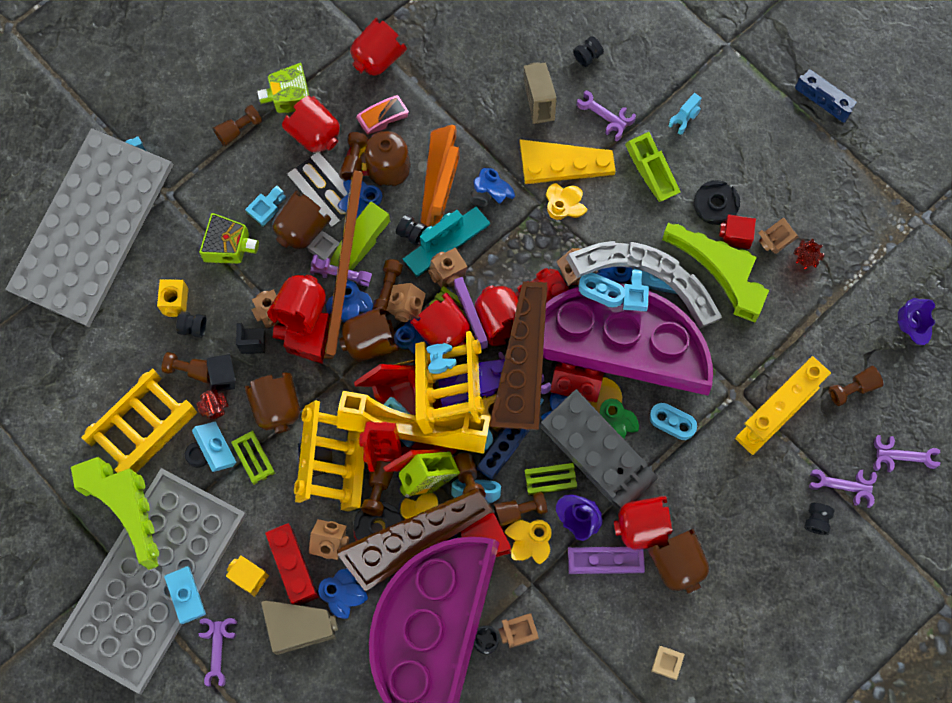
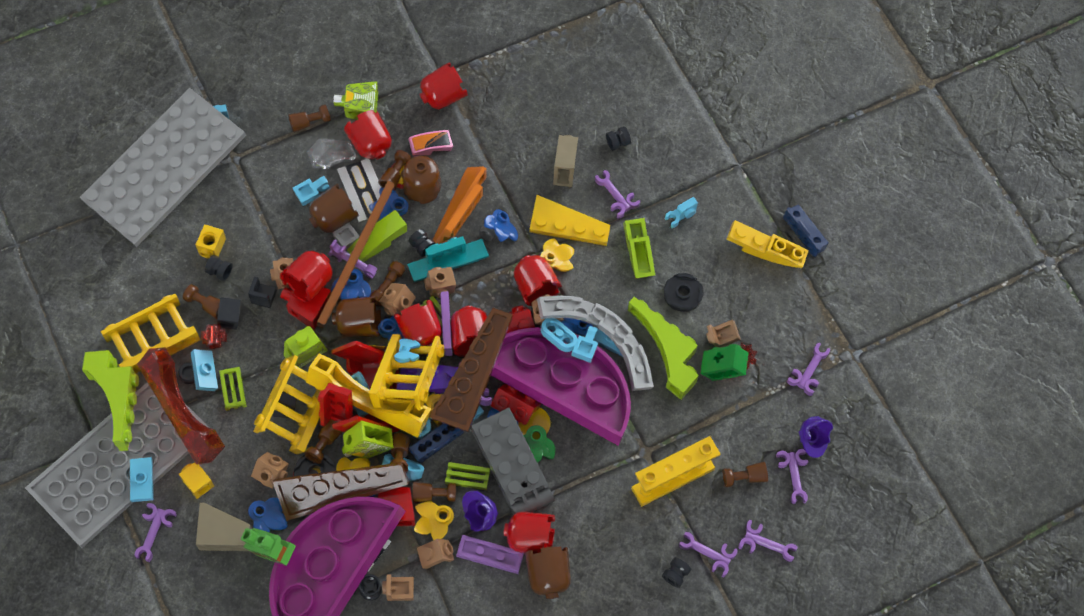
camera: 10 degrees right, 5 degrees down
(166, 466) = (160, 374): none -> clear red arch
(226, 241) = (268, 209): torso -> none
(273, 402) = (263, 348): reddish brown cylinder -> none
(274, 157) = (330, 152): none -> clear arch
(291, 565) = (234, 481): red brick -> none
(319, 385) = (304, 345): none -> lime torso
(356, 629) = (267, 545): none -> bright green hips
(545, 578) = (435, 553): none -> medium nougat bracket
(552, 234) = (535, 278): none -> red cylinder
(673, 420) = (585, 458): medium azure plate -> none
(738, 231) = (691, 320): red brick -> none
(792, 267) = (724, 362): none -> green brick
(793, 126) = (765, 247): none -> yellow slope
(879, 261) = (803, 381): none -> medium lavender bar
(901, 354) = (794, 461): none -> medium lavender bar

